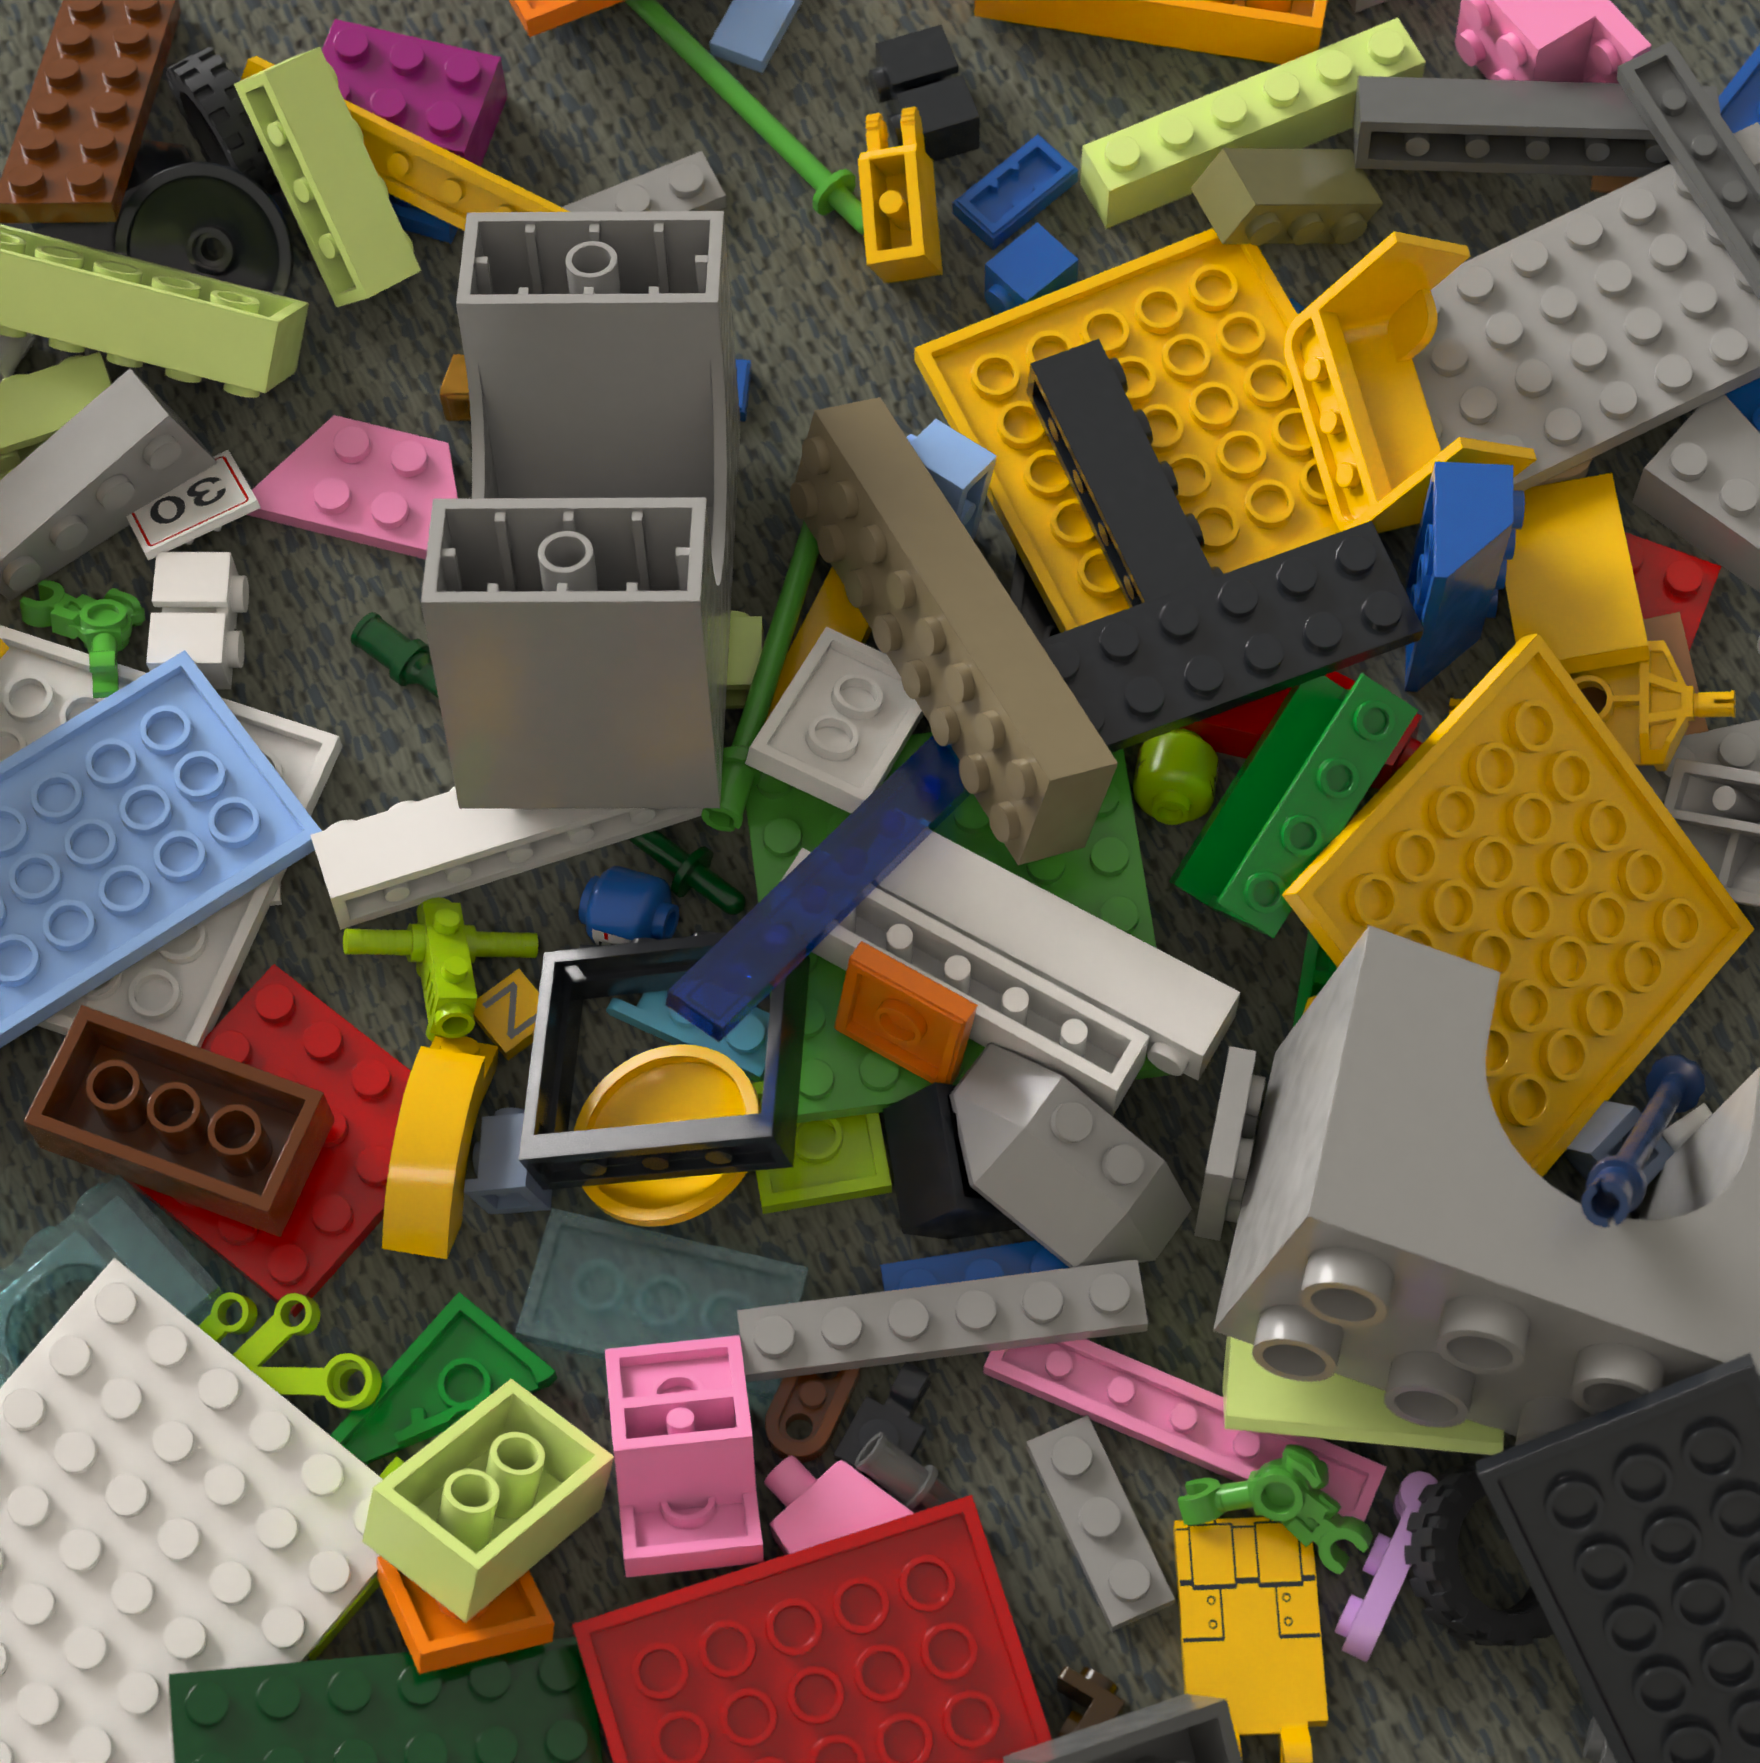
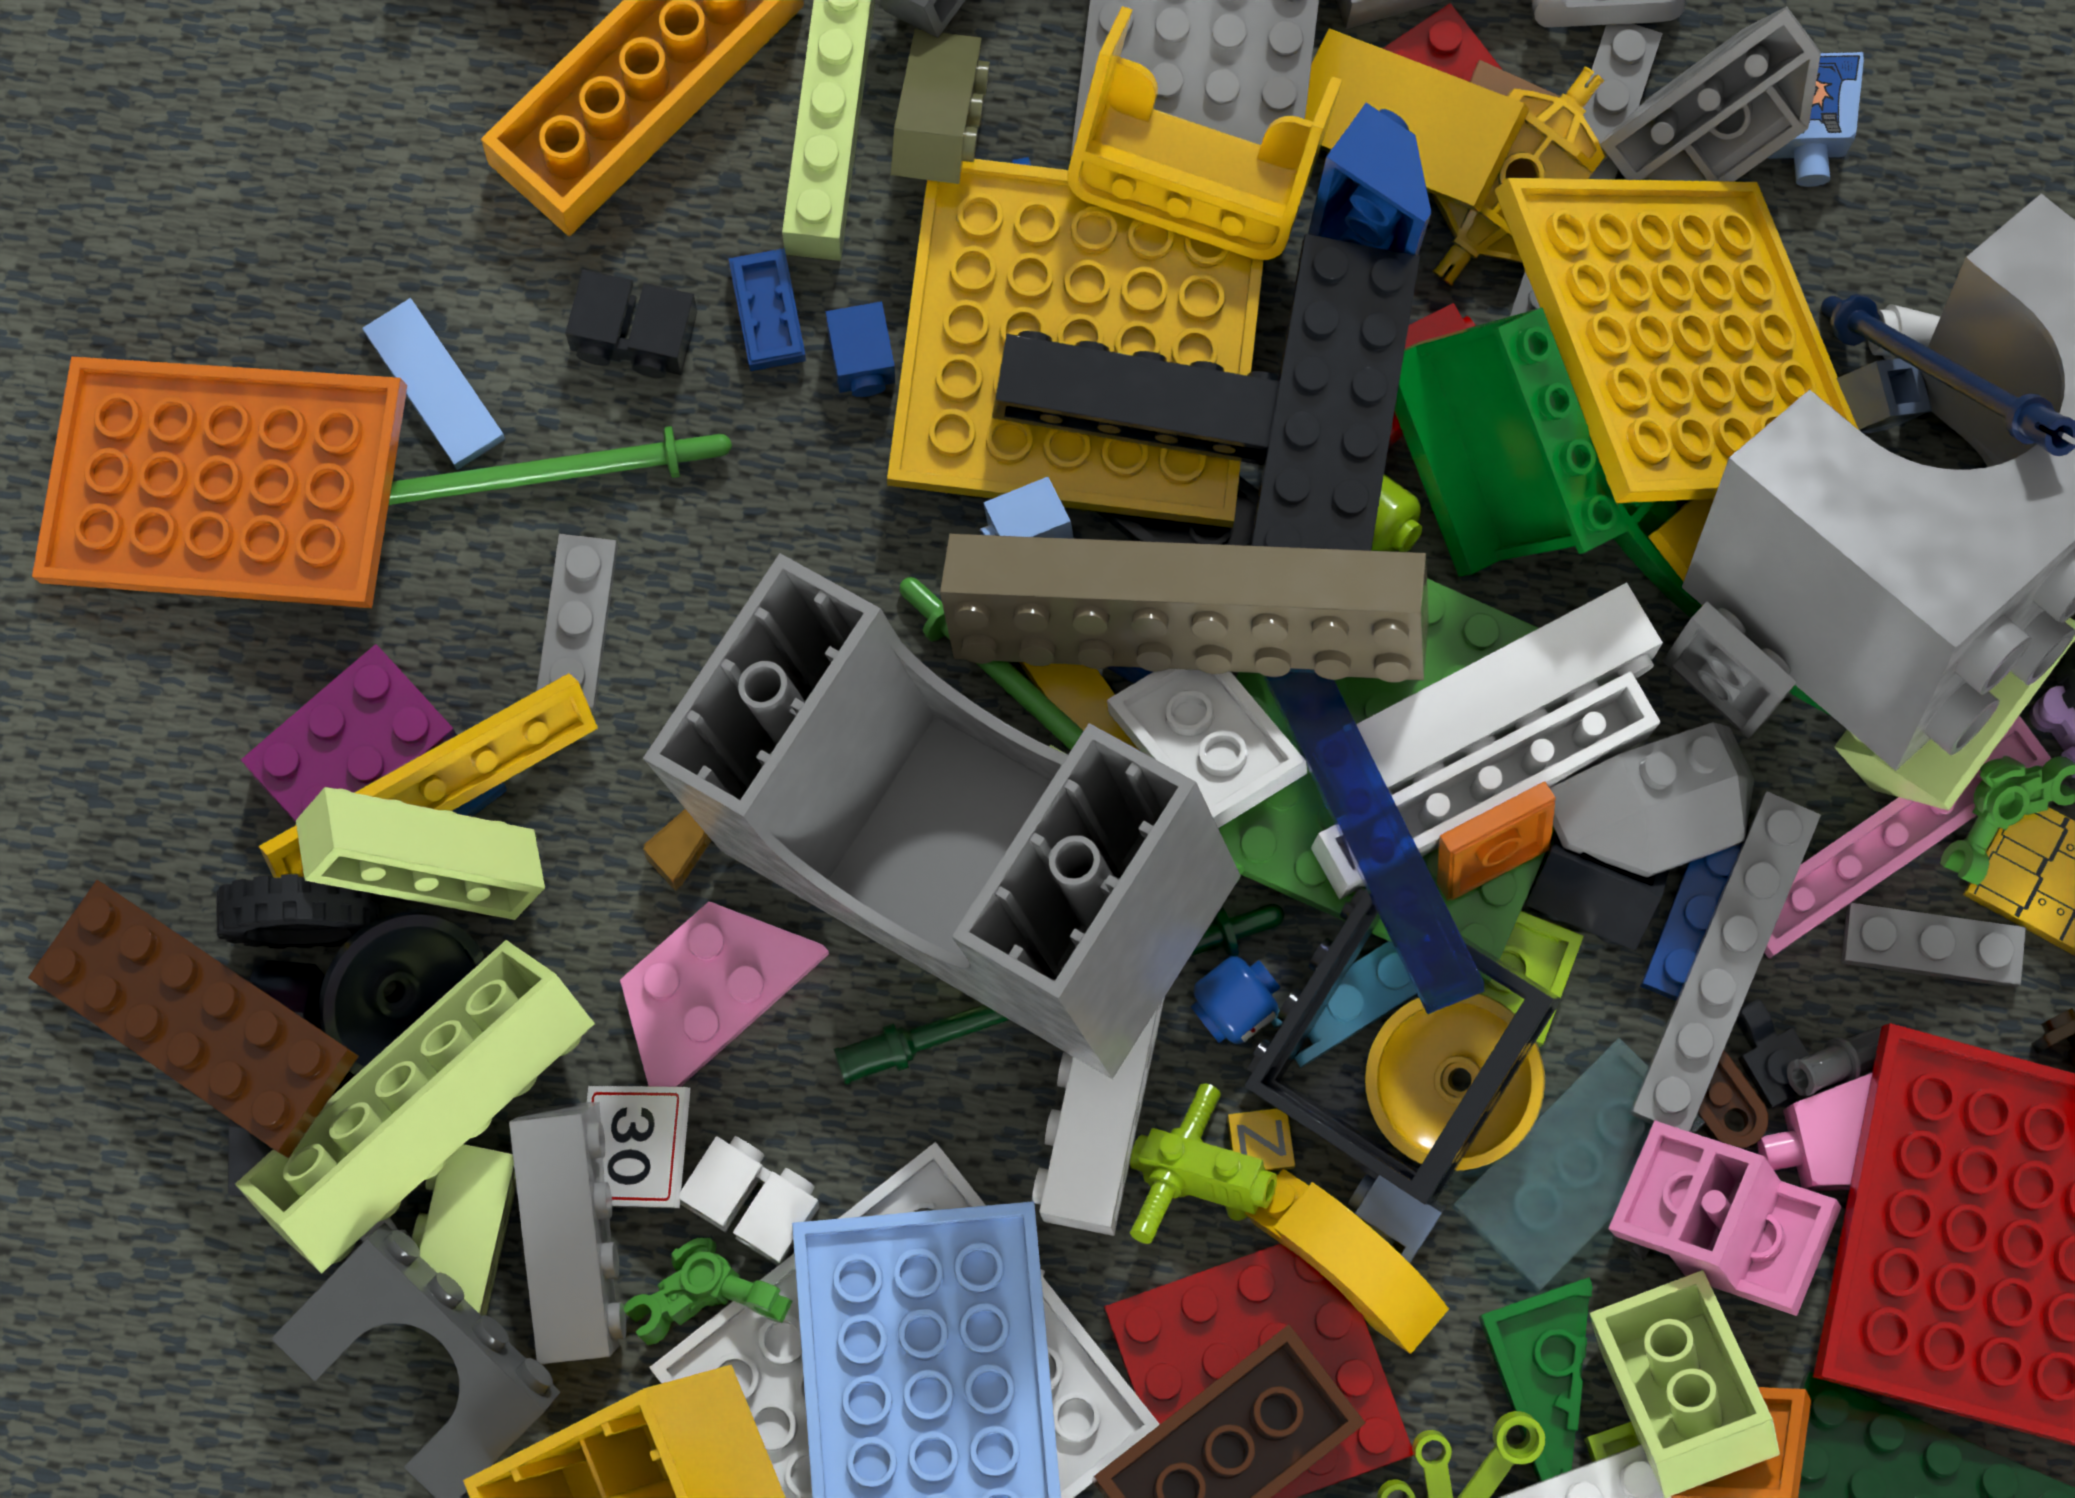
camera: 65 degrees left, 10 degrees up
(899, 202) = (731, 406): yellow hinge -> none

